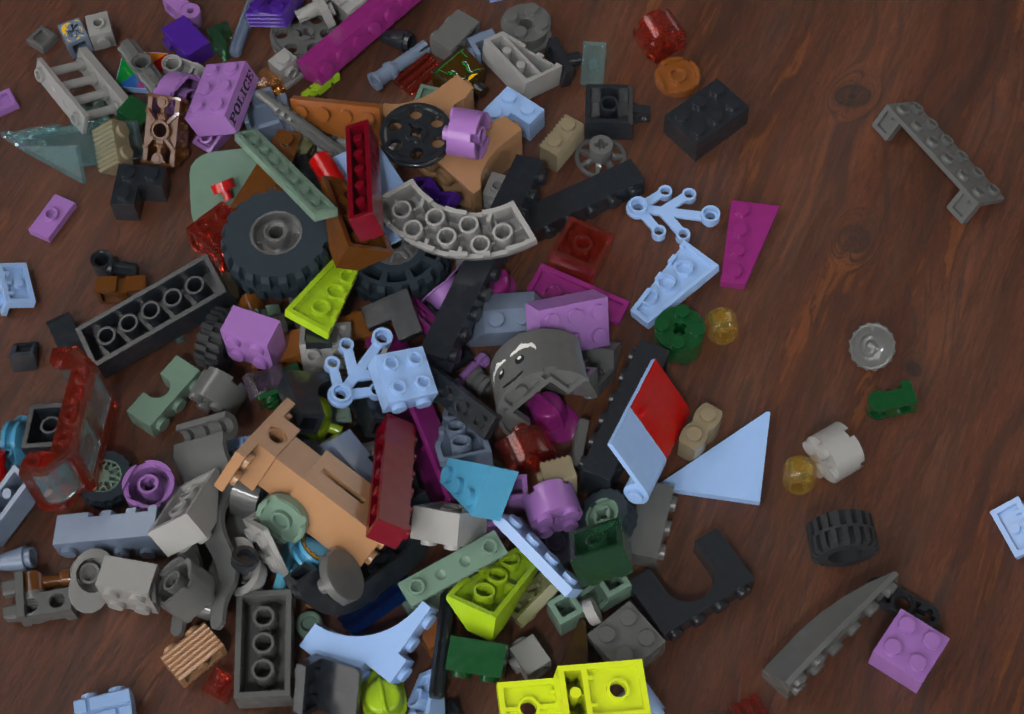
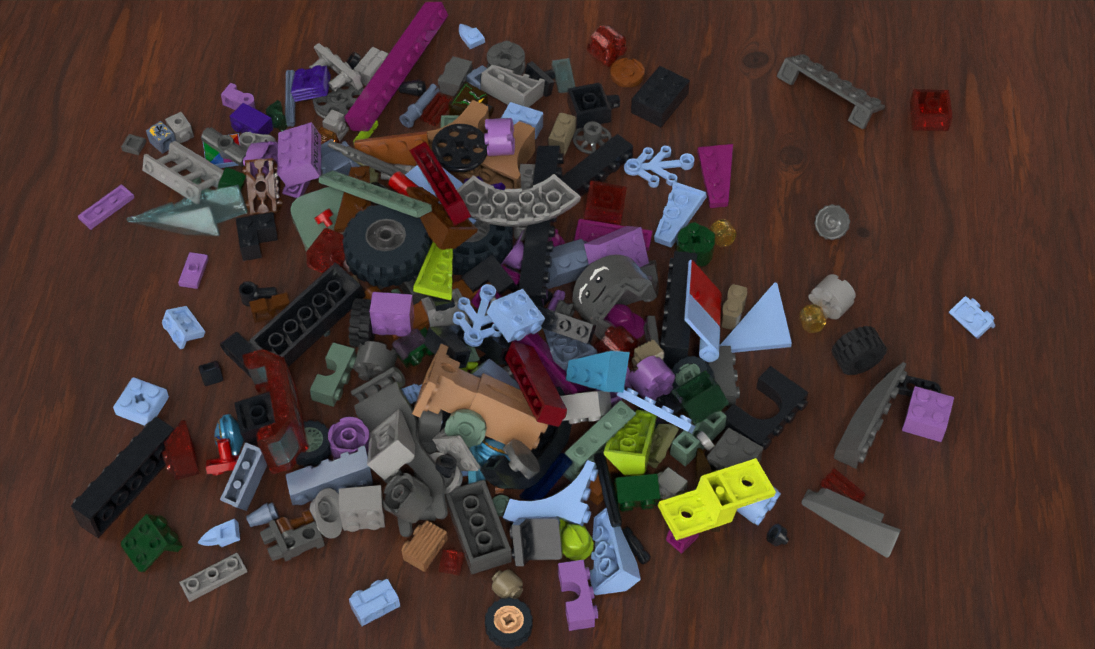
camera: 20 degrees left, 5 degrees down
(112, 146) = (224, 207): dark tan brick -> none
(892, 403) = (858, 257): dark green leg -> none

